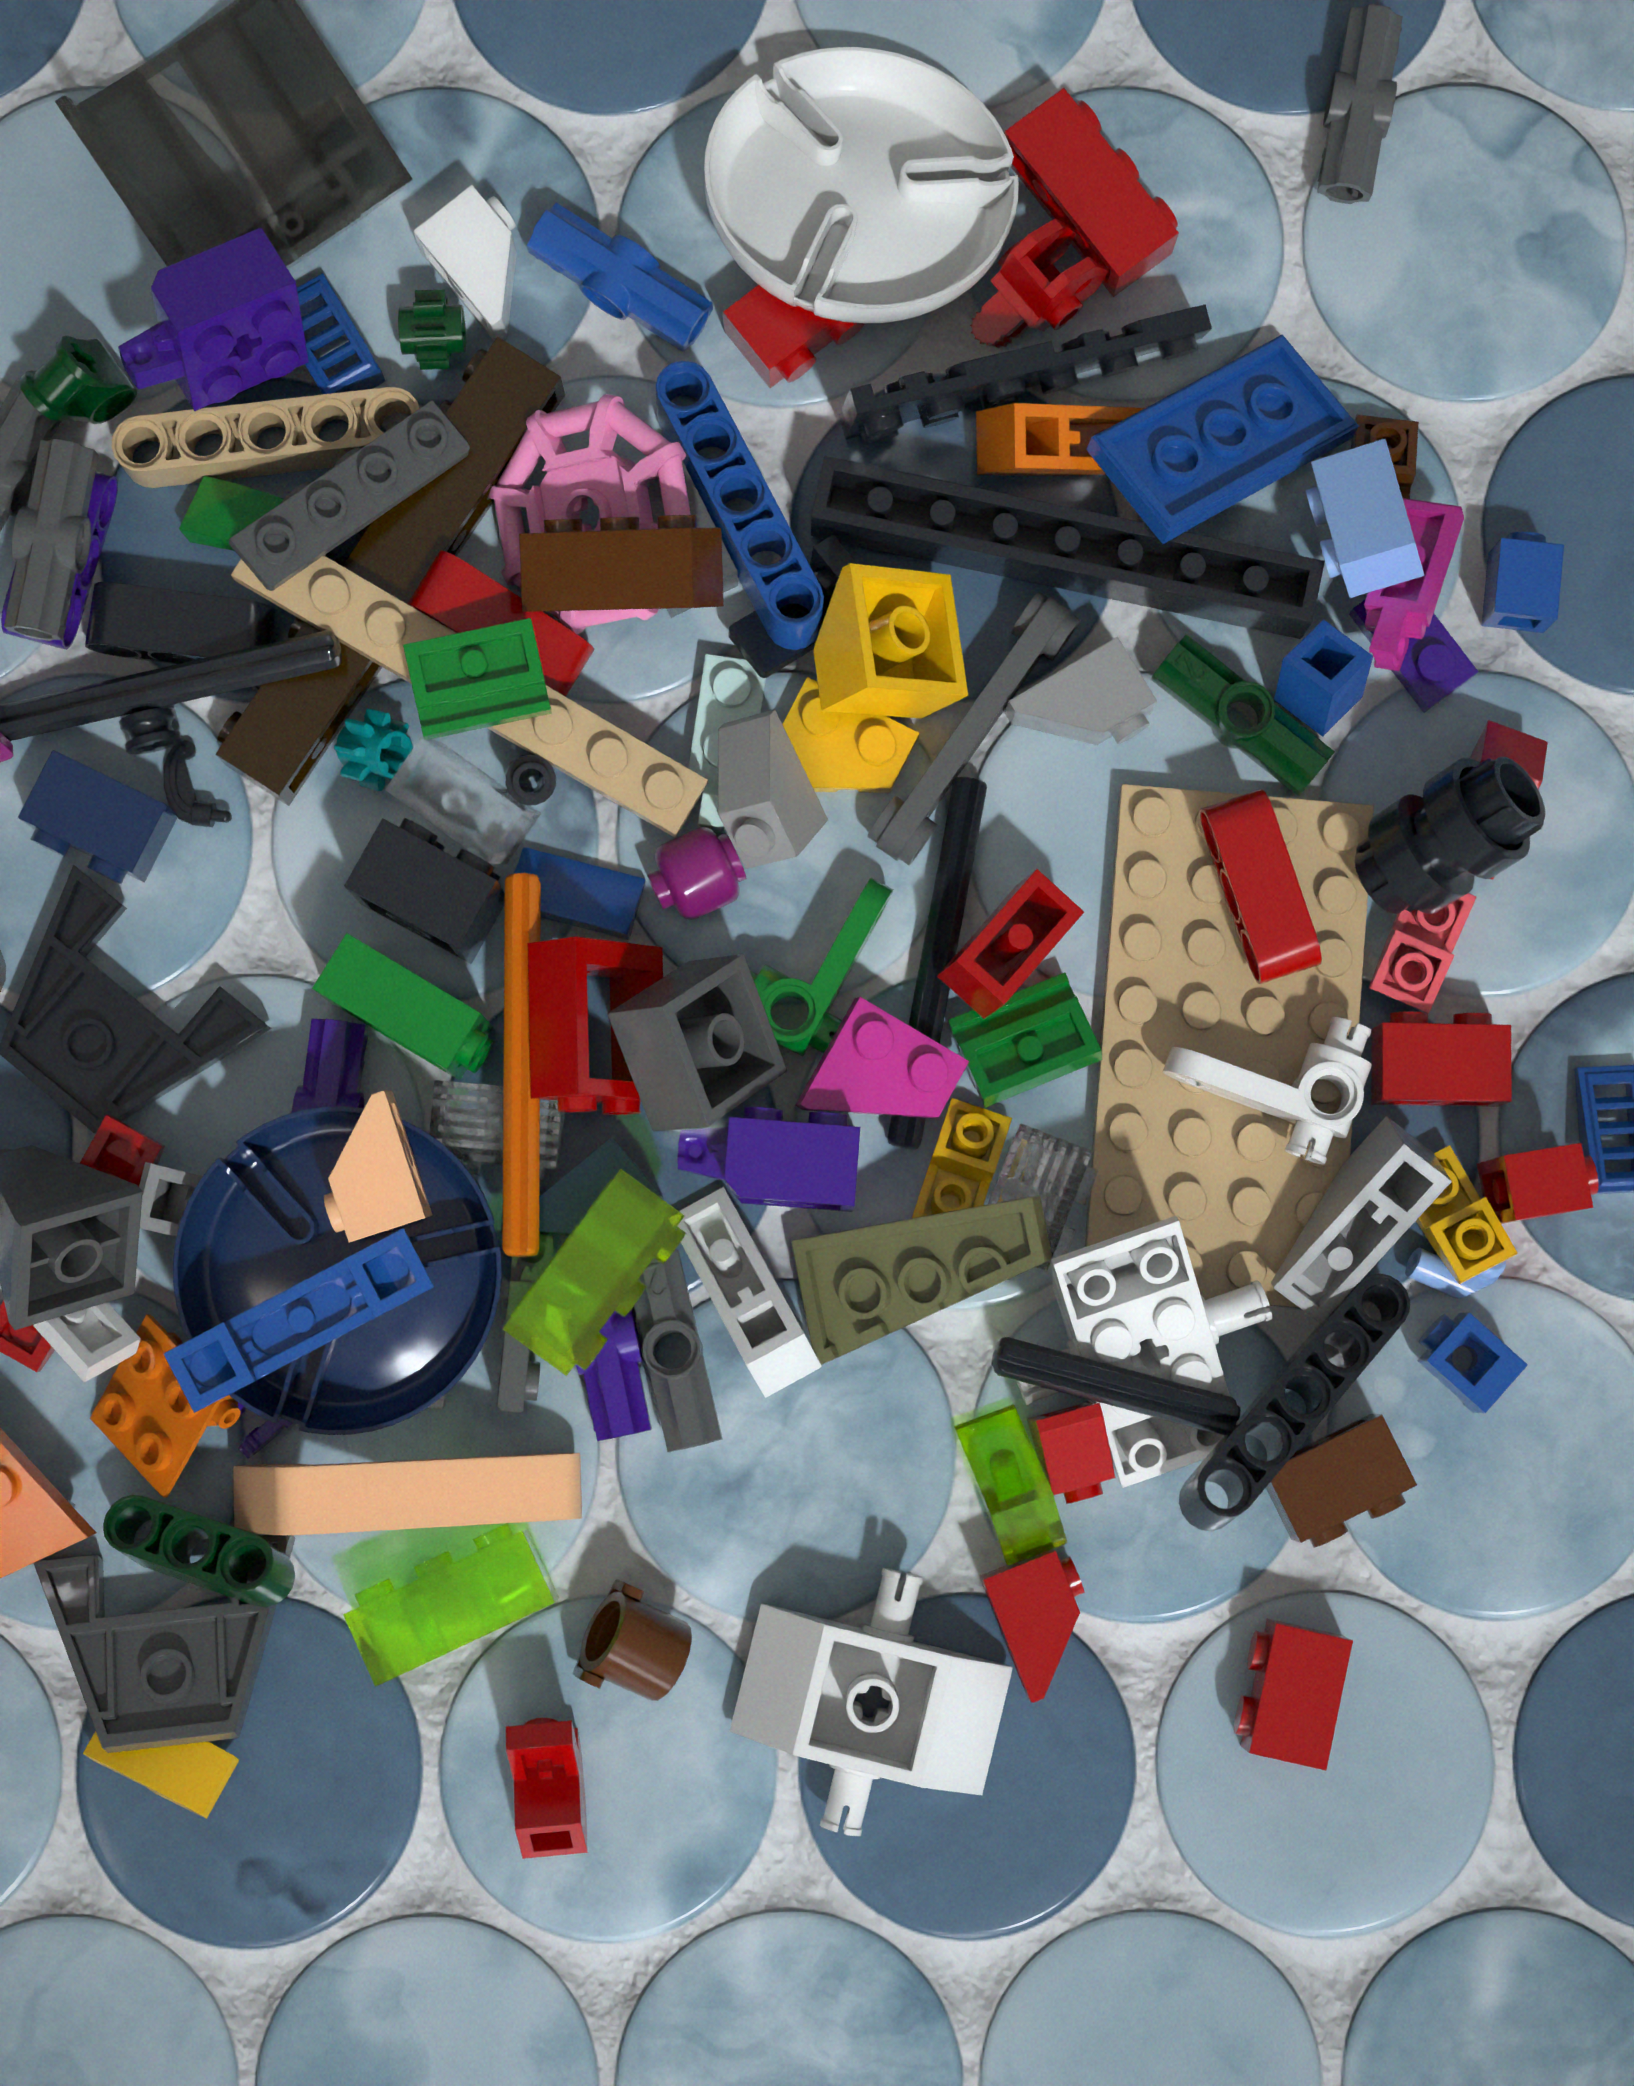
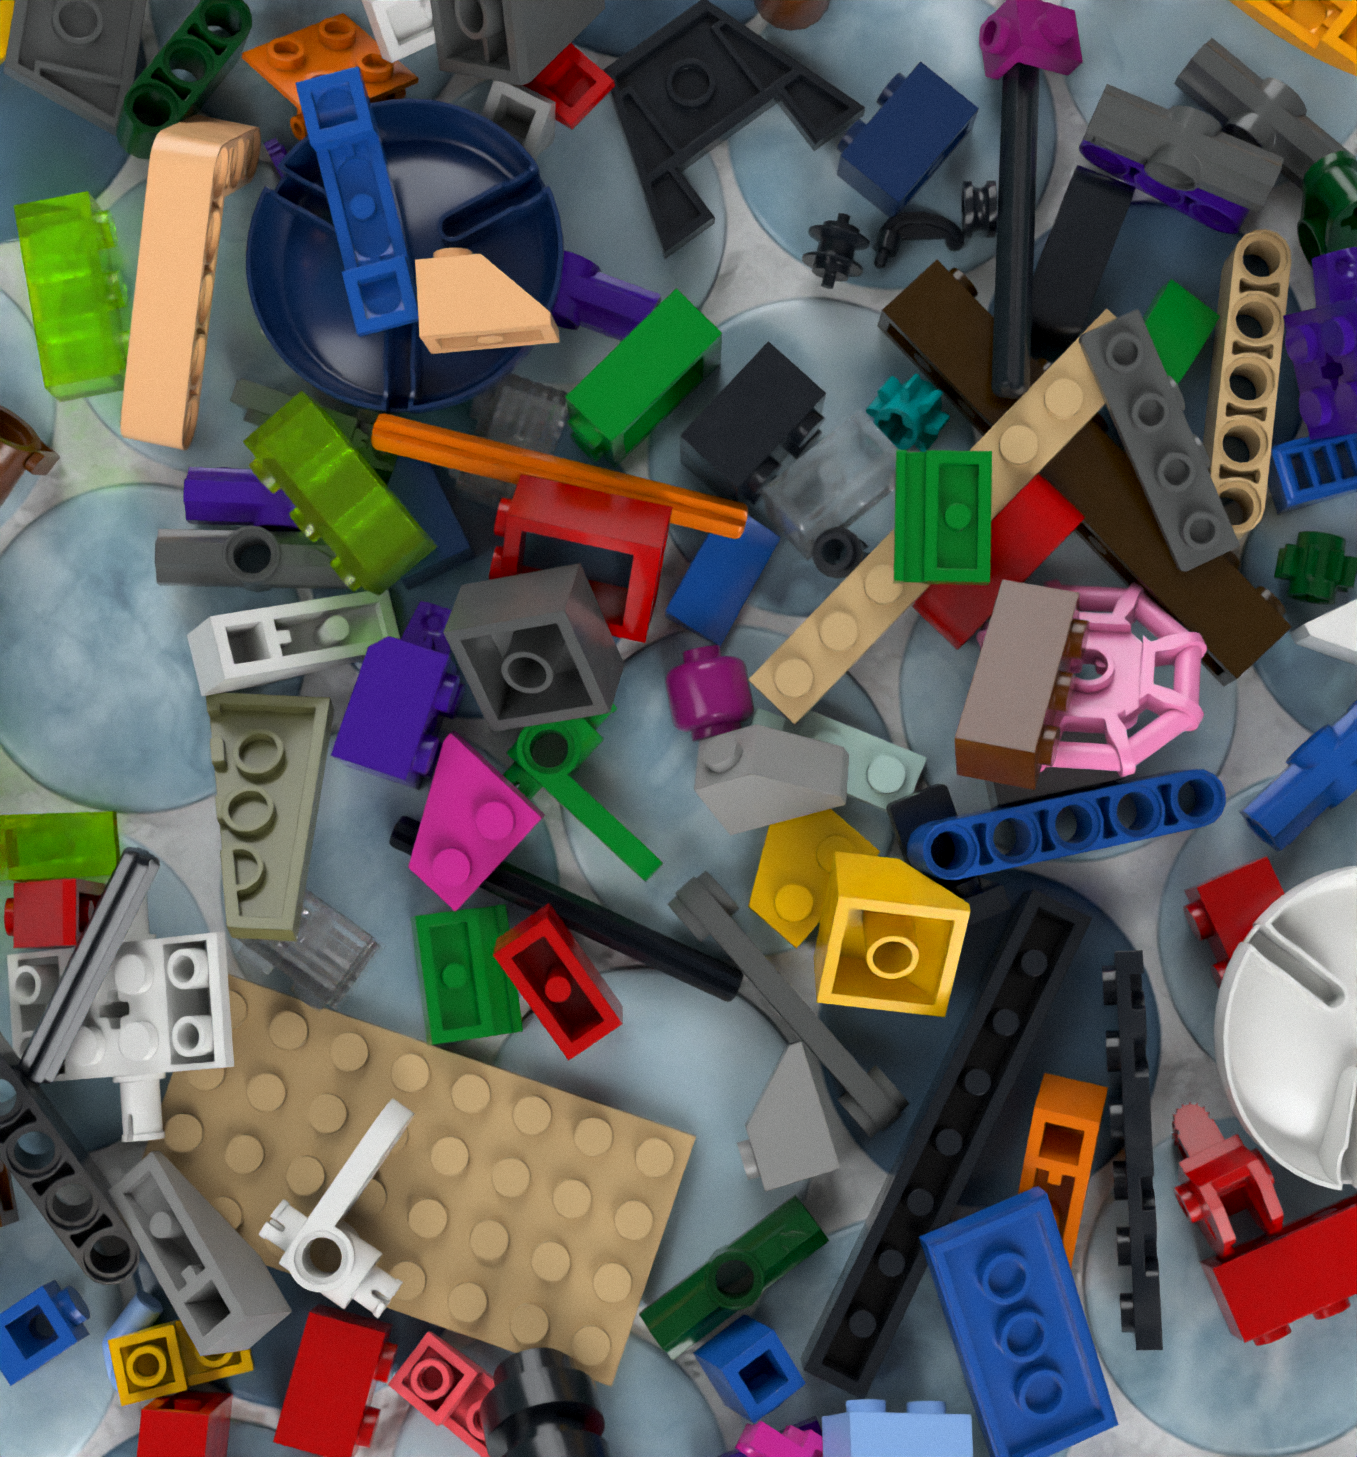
camera: 110 degrees right, 0 degrees up
(226, 859) = (835, 250): none -> black wheel
(962, 1159) = (362, 881): yellow slope -> none
(1260, 886) = (551, 1246): red beam -> none

